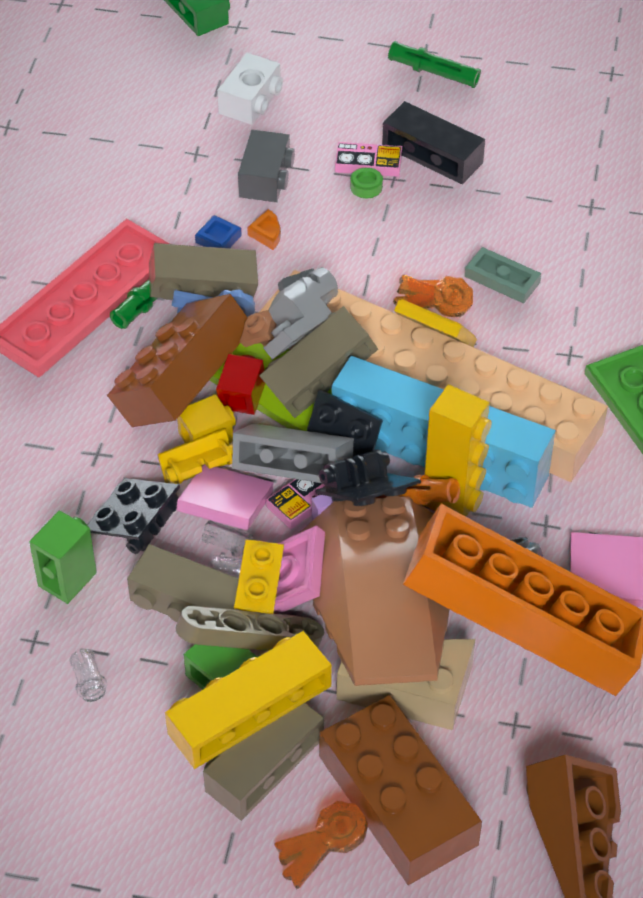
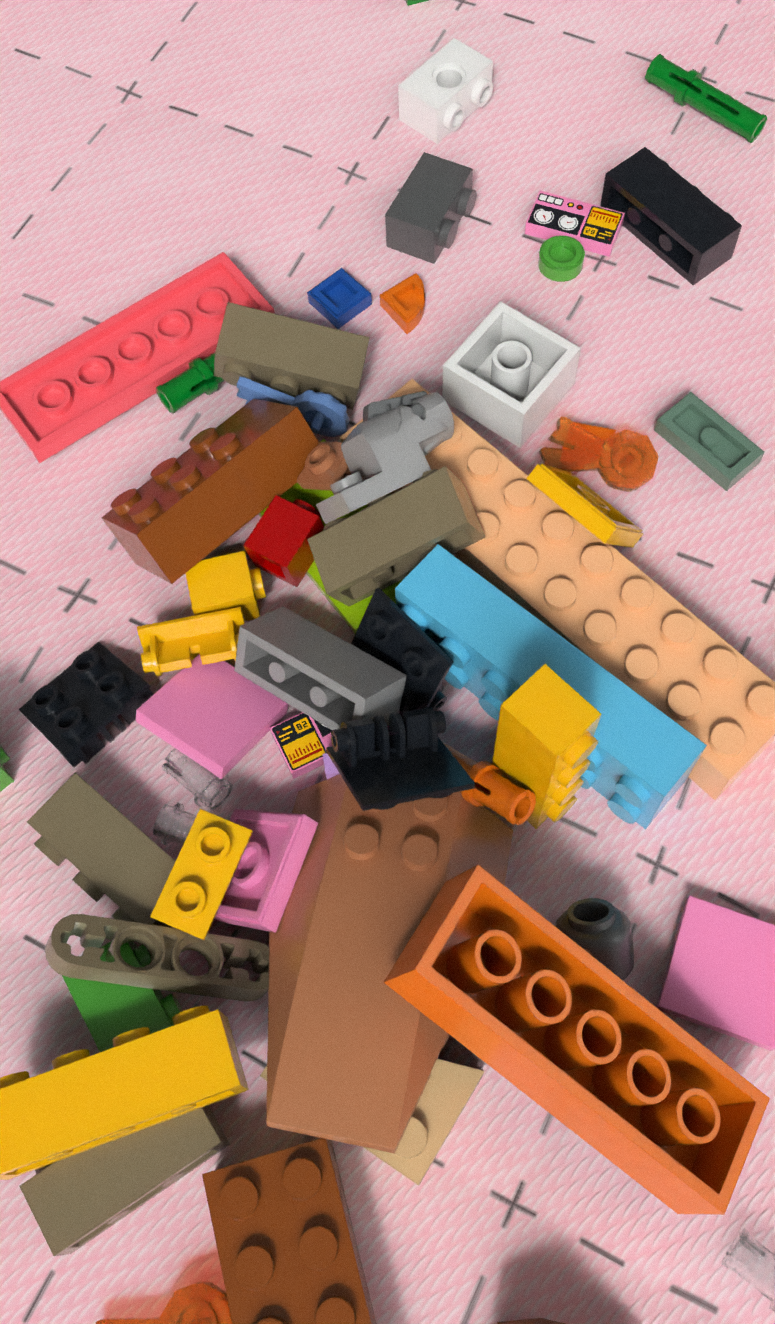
camera: 20 degrees right, 15 degrees up
(360, 255) = (510, 373): none -> white brick

